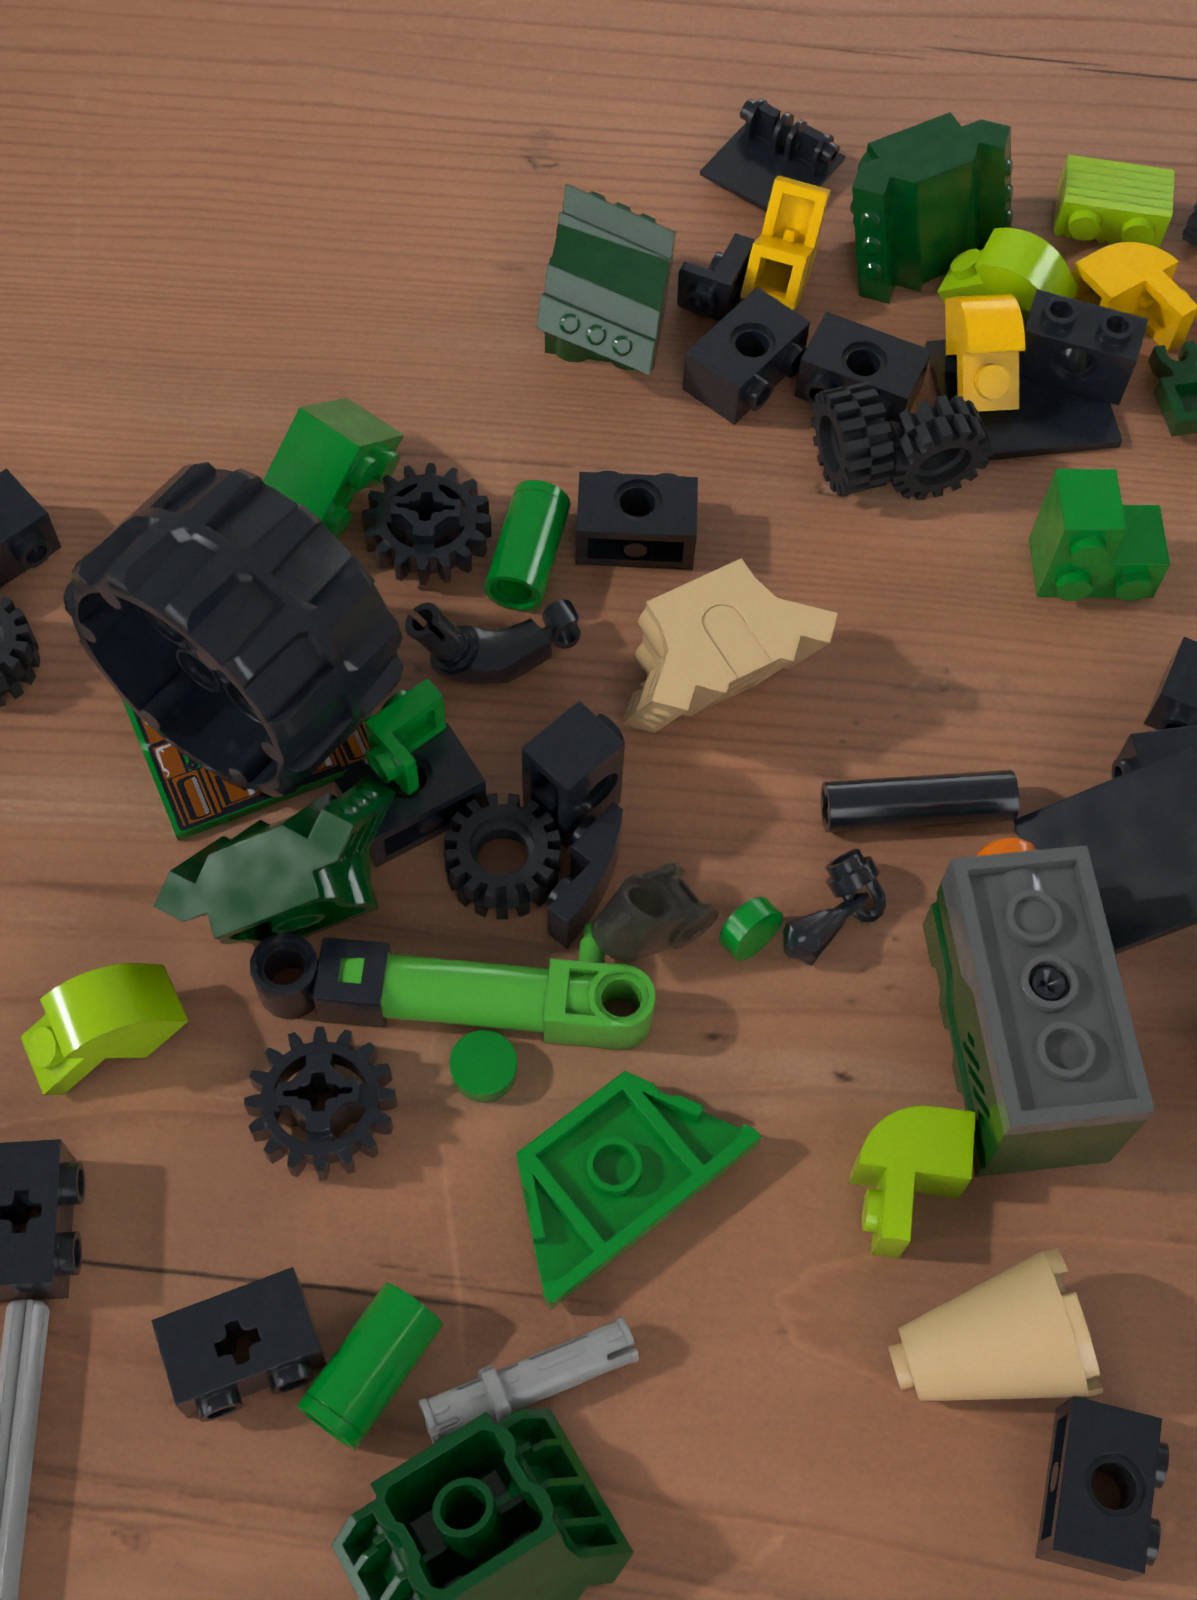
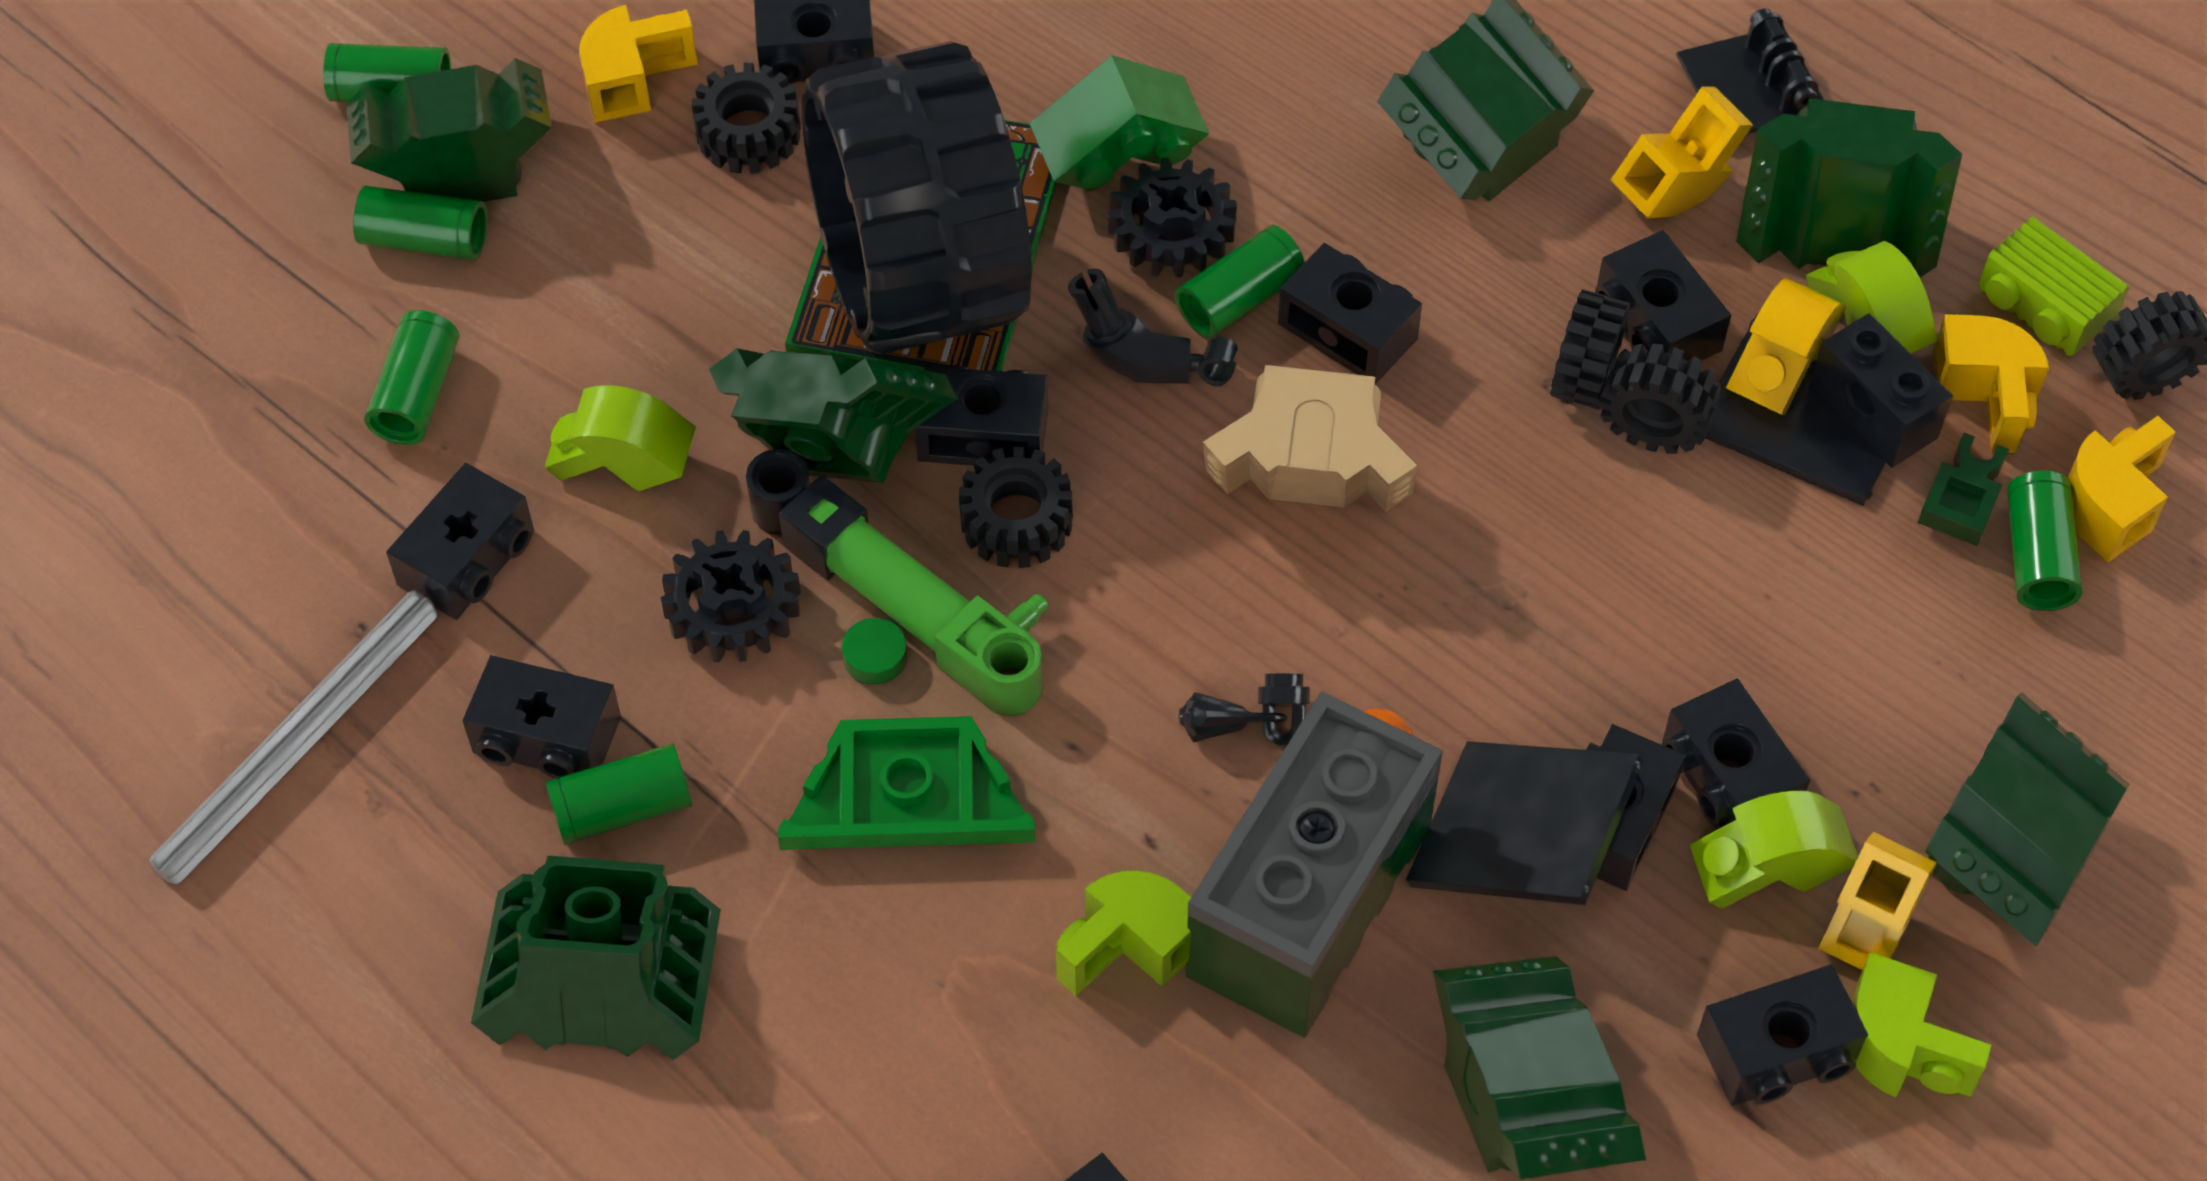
camera: 40 degrees right, 5 degrees down
(399, 729) = (996, 354): green bracket -> none
(530, 1379) = (732, 883): light grey pin -> none
(574, 768) = (1114, 472): black brick -> none
(592, 864) = (1090, 552): black slope -> none
(652, 915) = (1090, 614): clear smoke piece -> none
(716, 289) = (1596, 161): black bracket -> none
(746, 356) = (1566, 230): black brick -> none
(750, 928) = (1163, 680): green tile -> none
(919, 800) = (1394, 673): black piece -> none
(1002, 1340) = (1093, 1086): tan cone -> none
(1094, 544) = (1734, 564): green brick -> none

